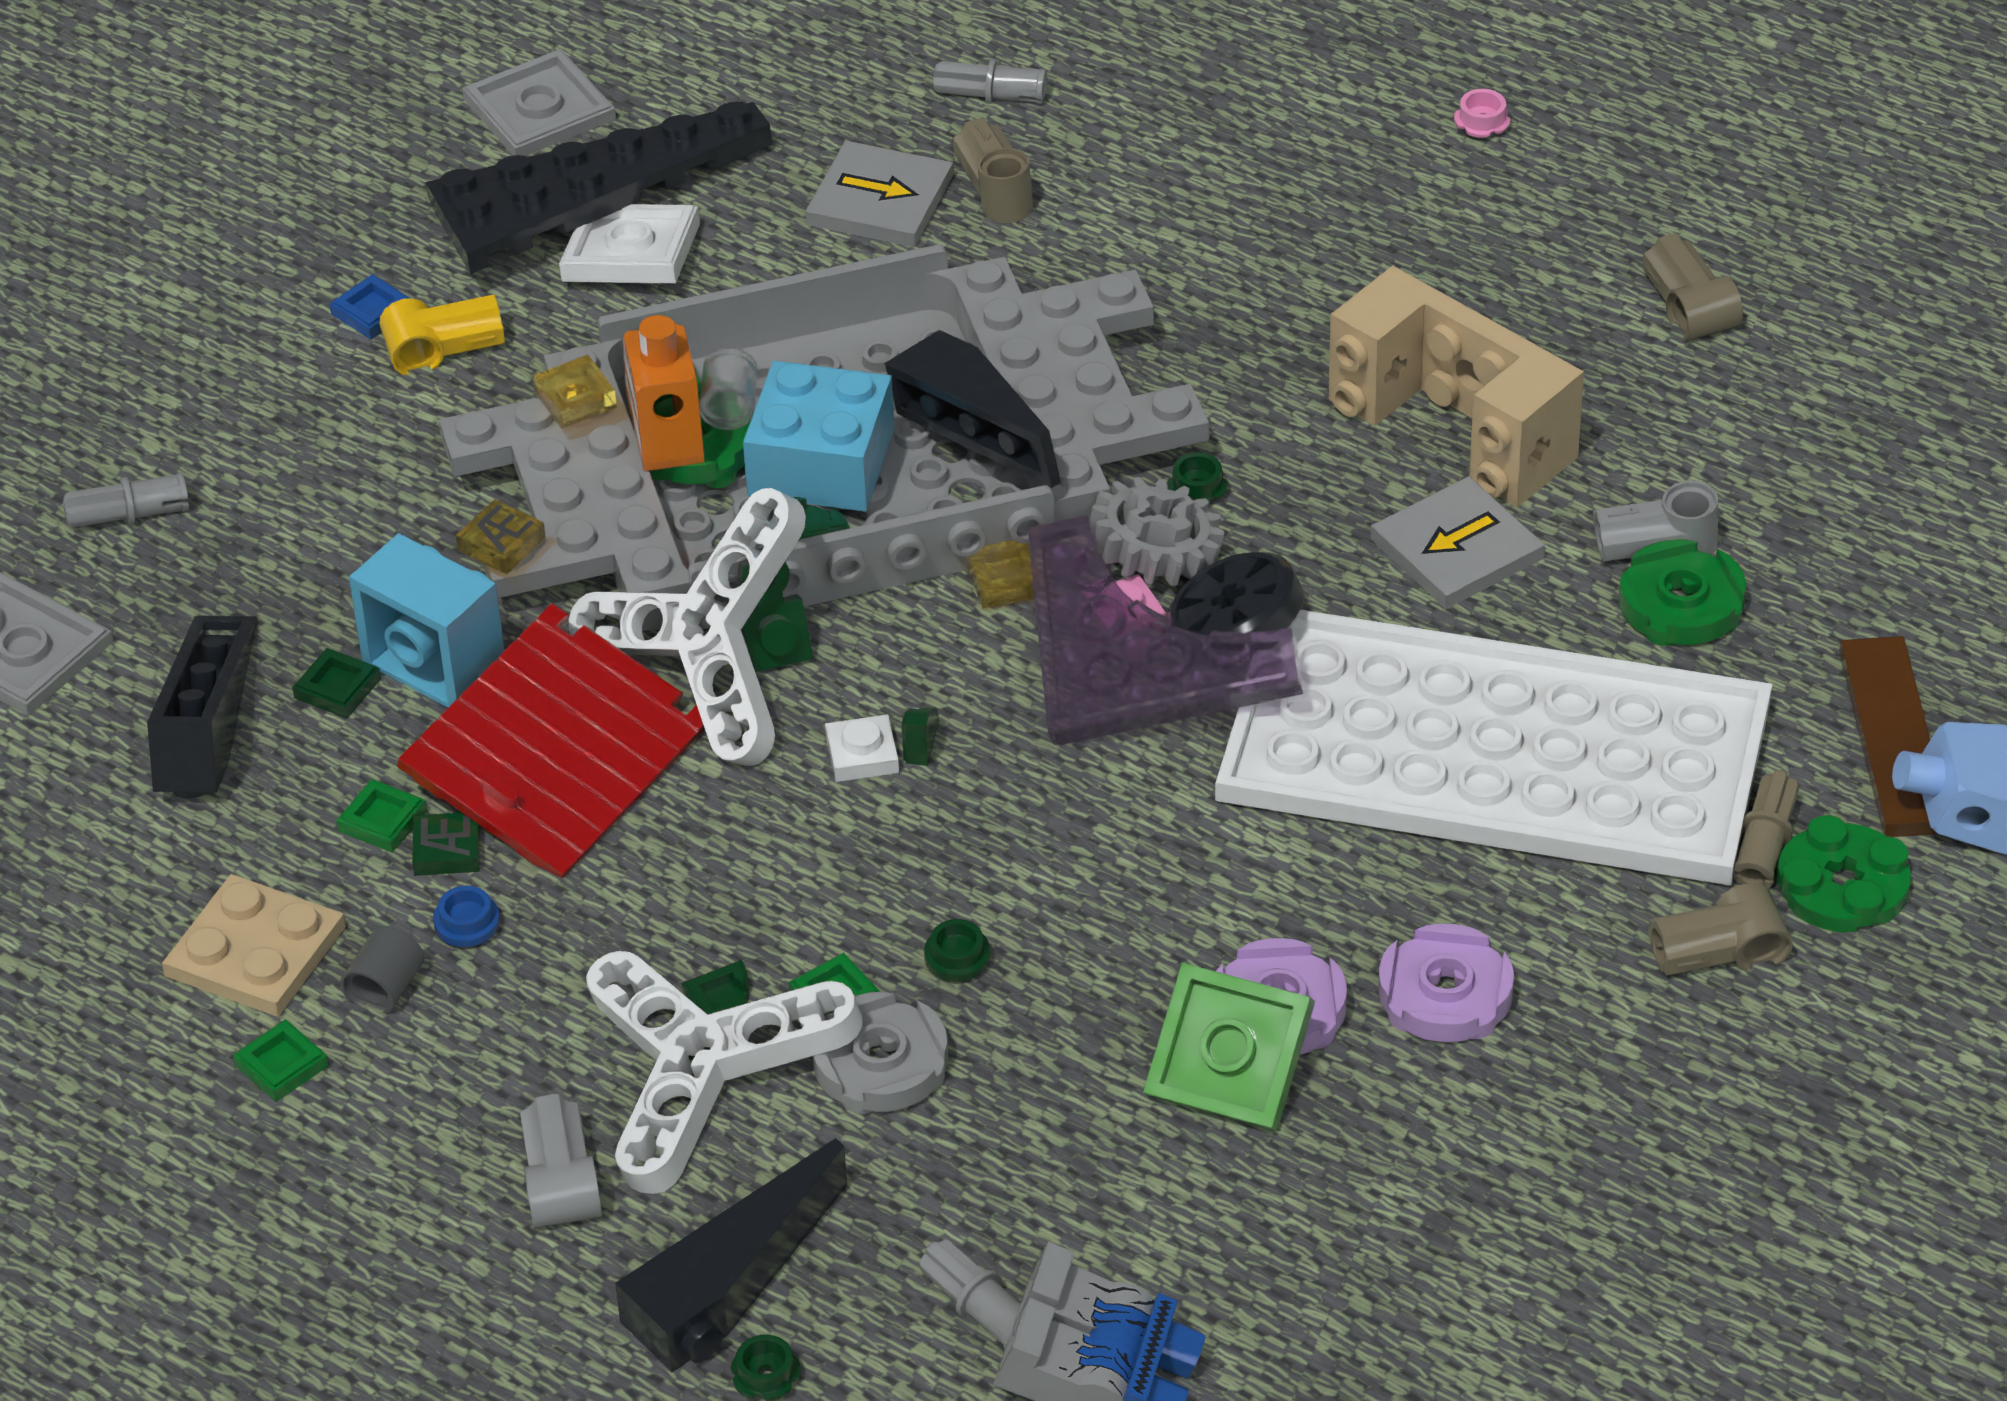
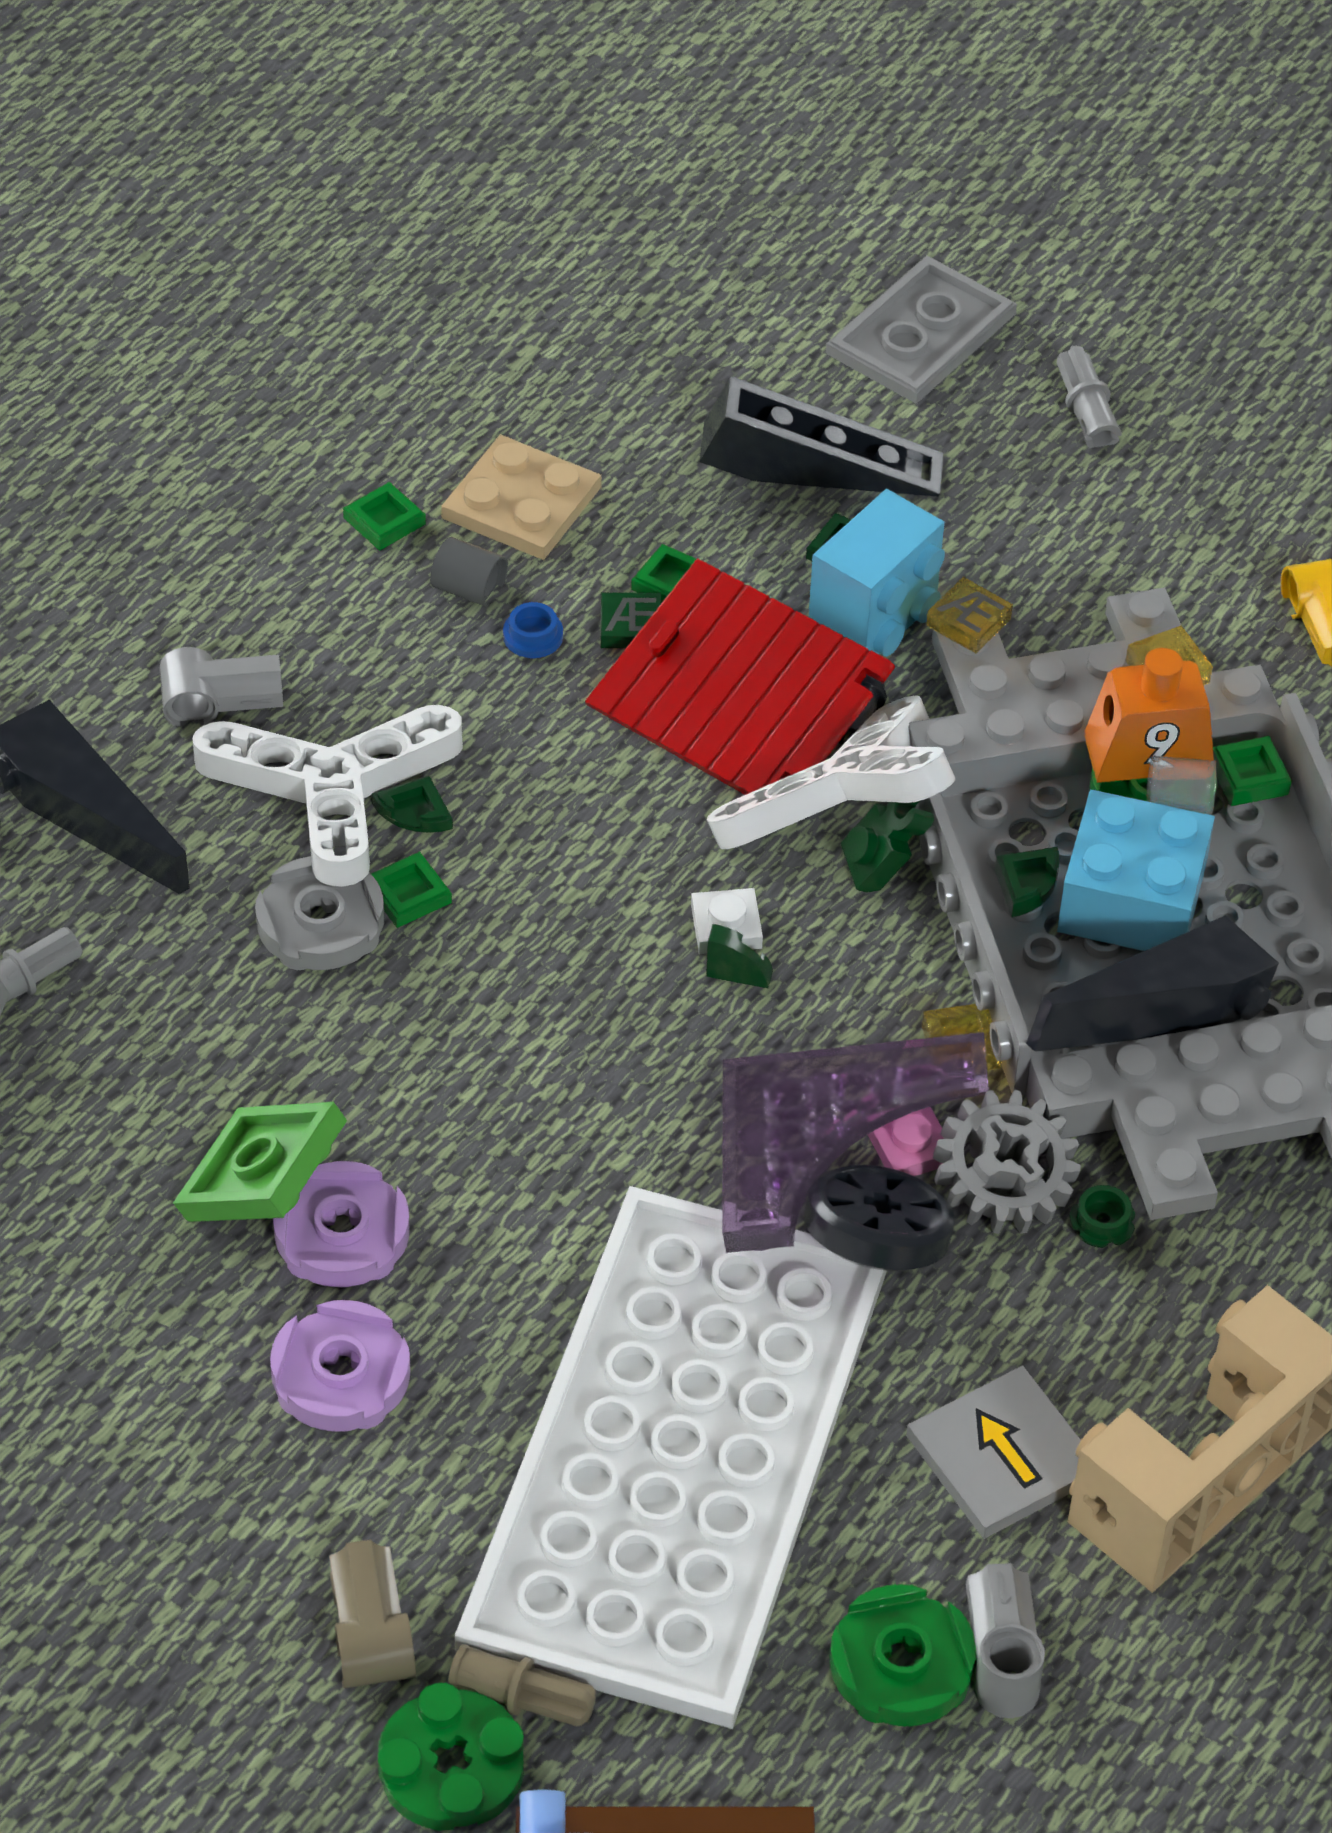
camera: 90 degrees right, 5 degrees up
(957, 950) = (443, 978): dark green plate -> none

